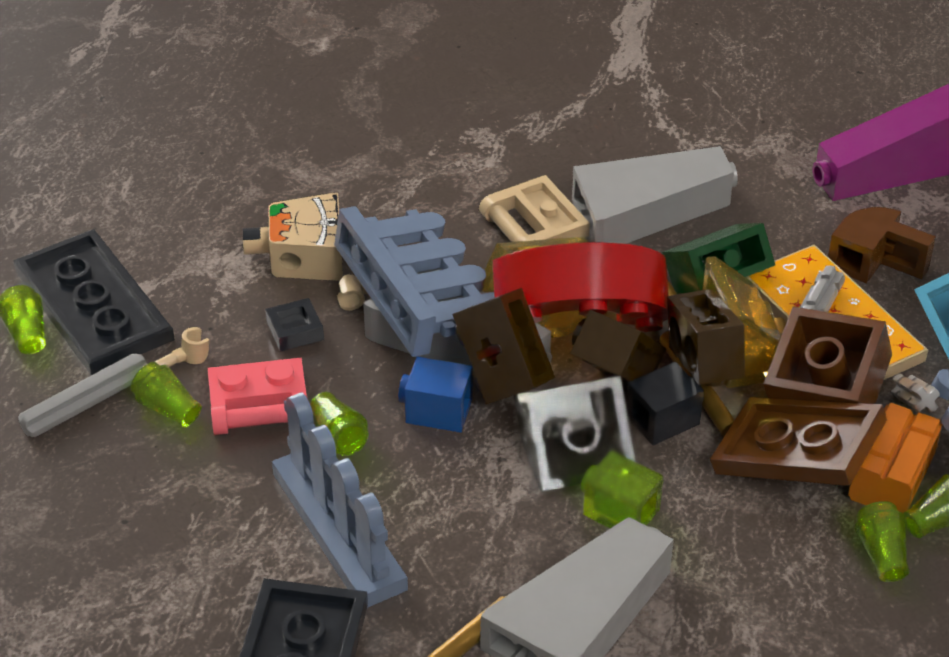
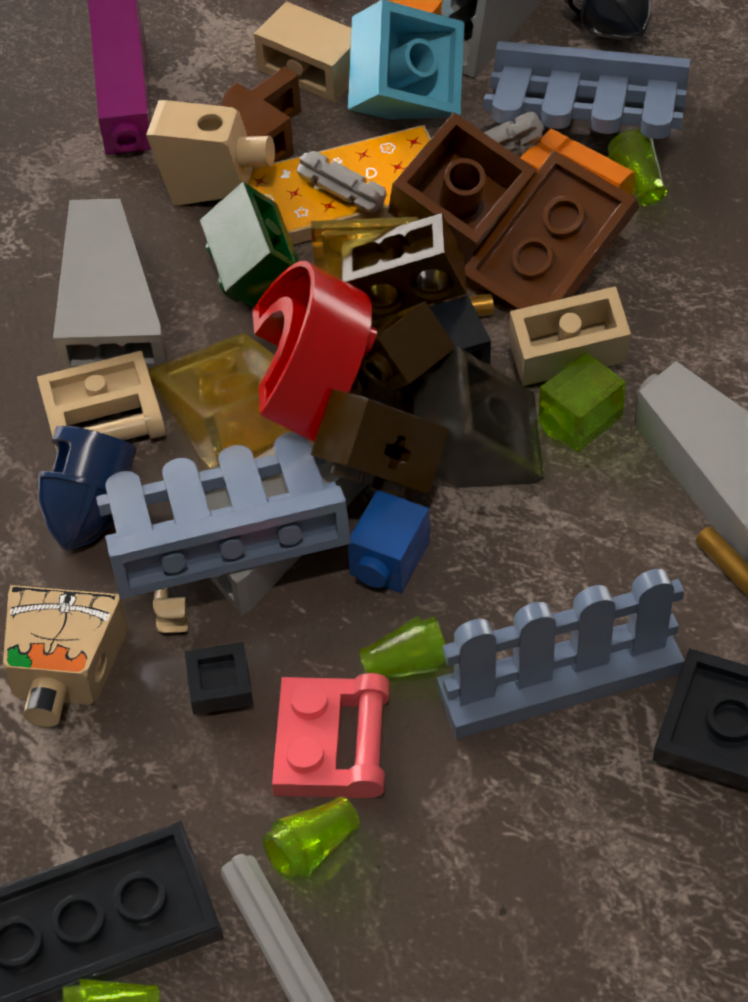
camera: 75 degrees left, 10 degrees up
(191, 350) = (223, 812): tan hand -> none
(465, 214) = (78, 476): none -> dark blue helmet
(690, 469) = (558, 332): none -> tan brick
(803, 216) = (204, 150): none -> tan torso
(884, 538) = (674, 217): clear neon green cone -> none

